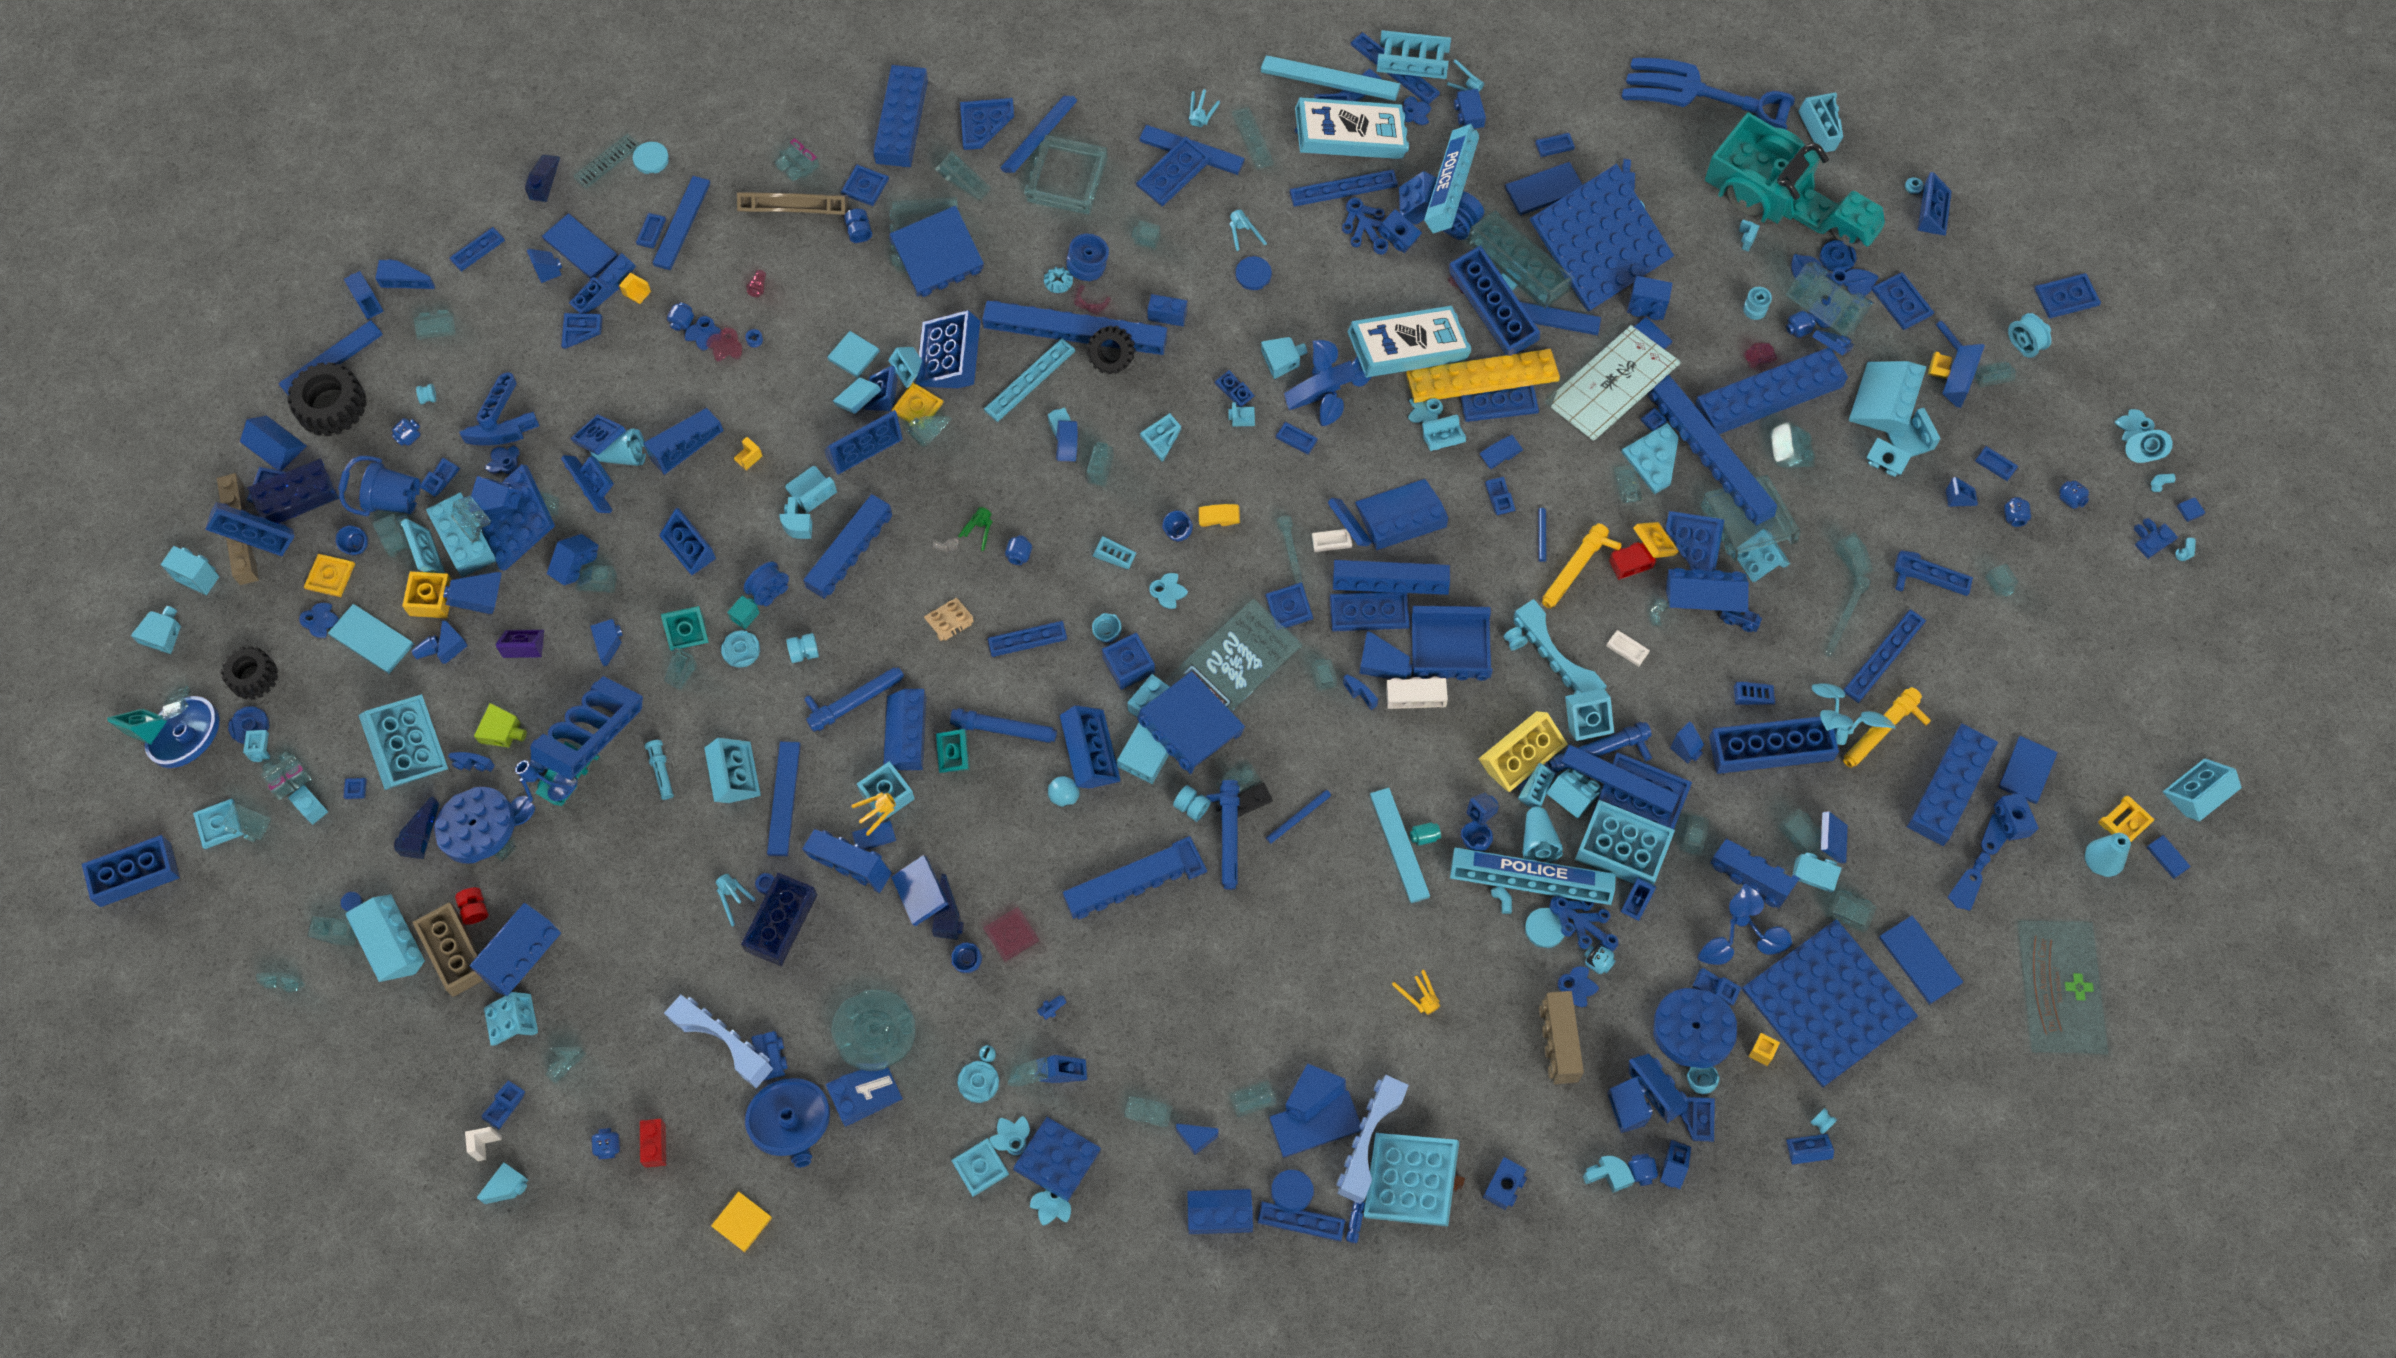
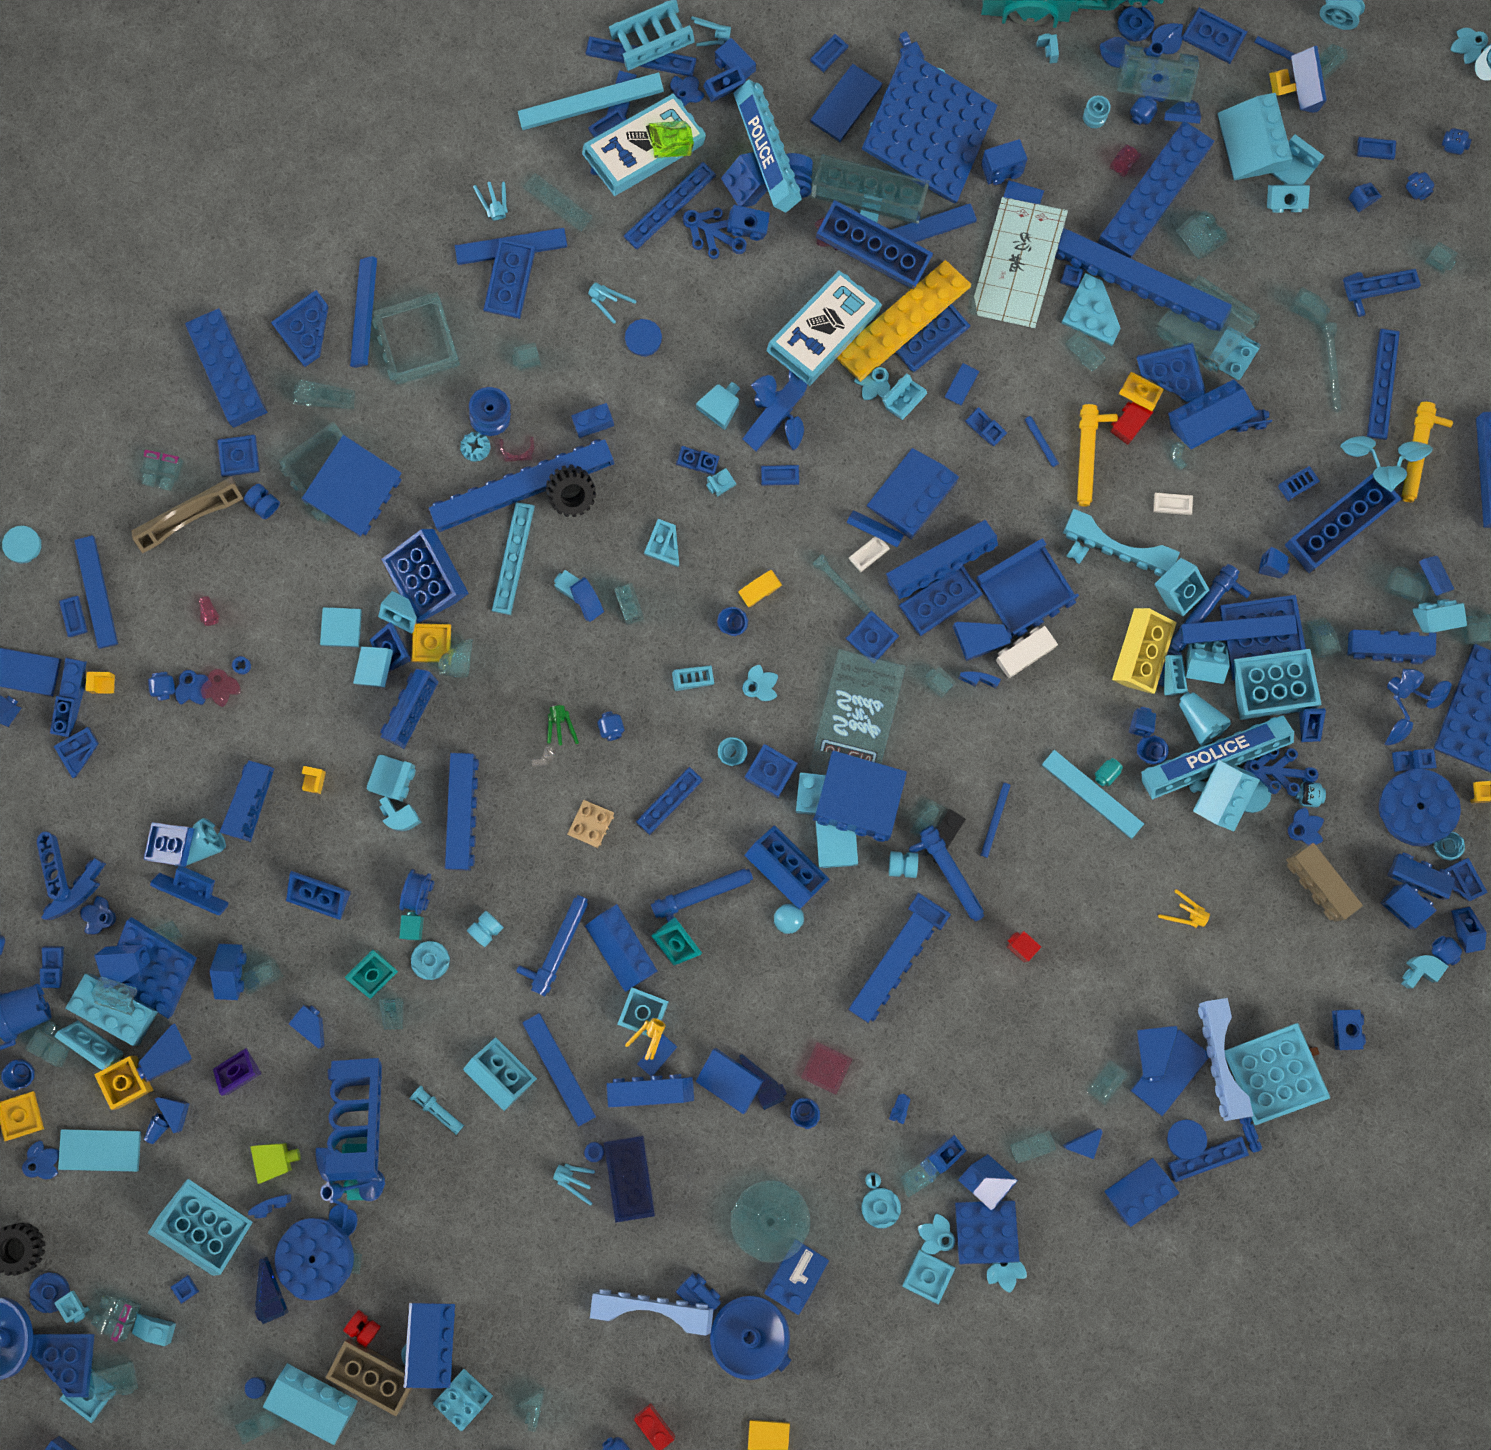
camera: 30 degrees left, 15 degrees up
(221, 784) = (66, 1360): none -> blue plate
(1086, 1113) = (988, 1181): none -> blue slope
(1251, 930) = (1023, 946): none -> red brick
(1374, 133) = (671, 139): none -> clear neon green slope
(1448, 119) = (724, 83): none -> blue slope
(1518, 908) = (1226, 795): none -> medium azure slope

